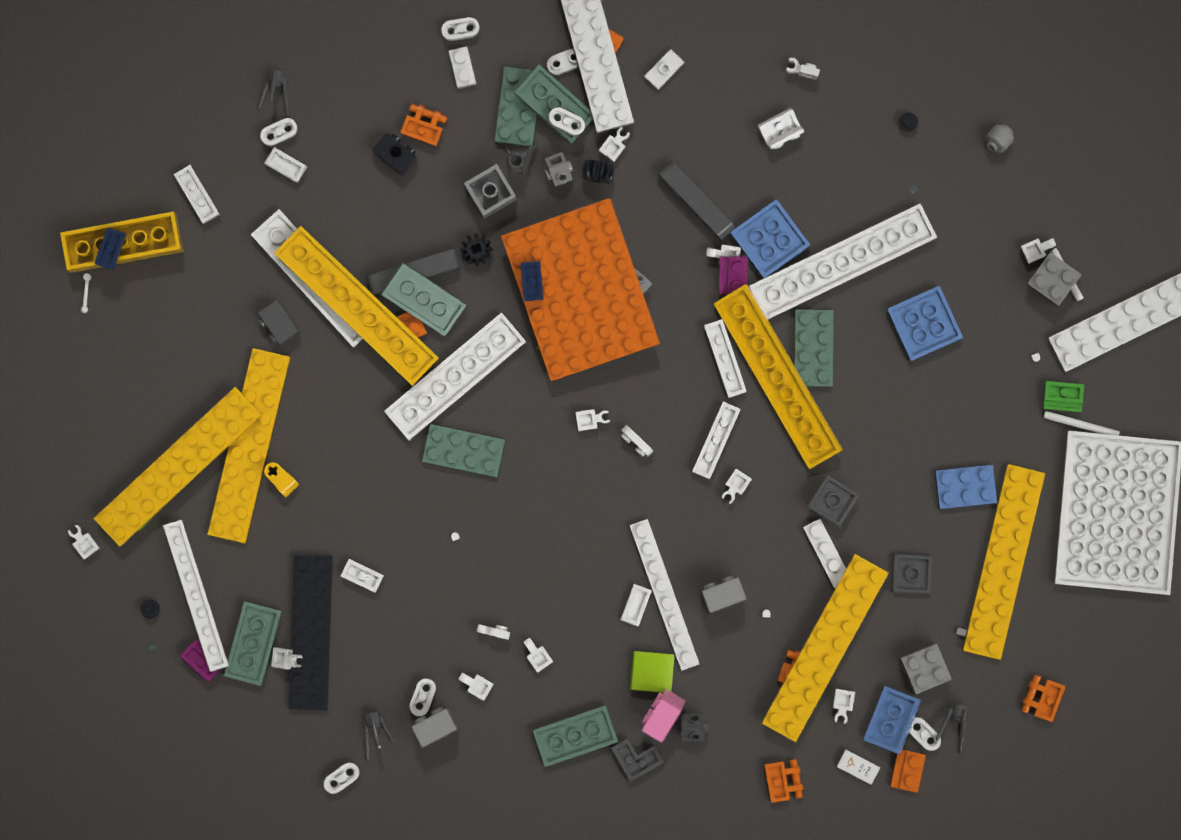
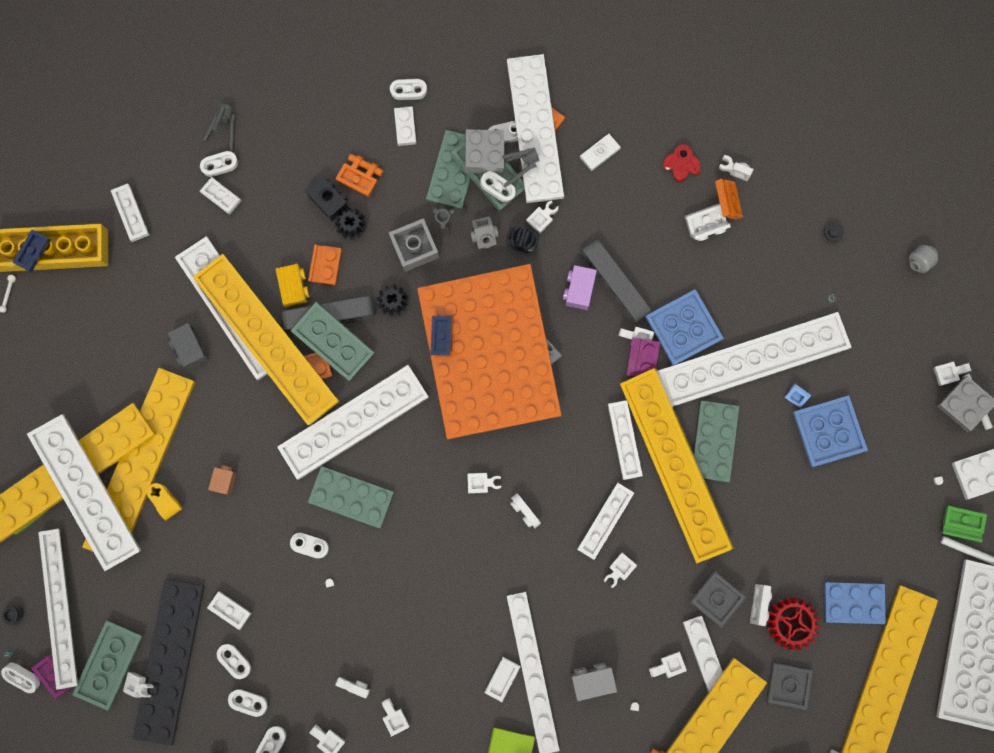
camera: 15 degrees right, 5 degrees down
(170, 666) = (20, 677): none -> white plate
(204, 480) = (84, 492): none -> white plate
(335, 450) = (222, 480): none -> nougat brick
(373, 247) = (292, 286): none -> yellow brick
(374, 623) = (233, 663): none -> white plate
(394, 661) = (248, 703): none -> white plate
(402, 222) = (325, 265): none -> orange plate
(423, 170) = (345, 228): none -> black gear
(430, 503) = (309, 545): none -> white plate
(548, 88) = (484, 151): none -> light grey brick
(594, 88) = (528, 156): none -> dark grey plant
(662, 212) = (580, 288): none -> lavender brick
(748, 73) = (682, 165): none -> red plate
(796, 569) = (671, 665): none -> white plate
(799, 102) = (729, 199): none -> orange plate
(875, 494) = (760, 605): none -> white plate
(889, 292) = (797, 395): none -> light blue slope
(892, 509) = (809, 631): none -> red gear

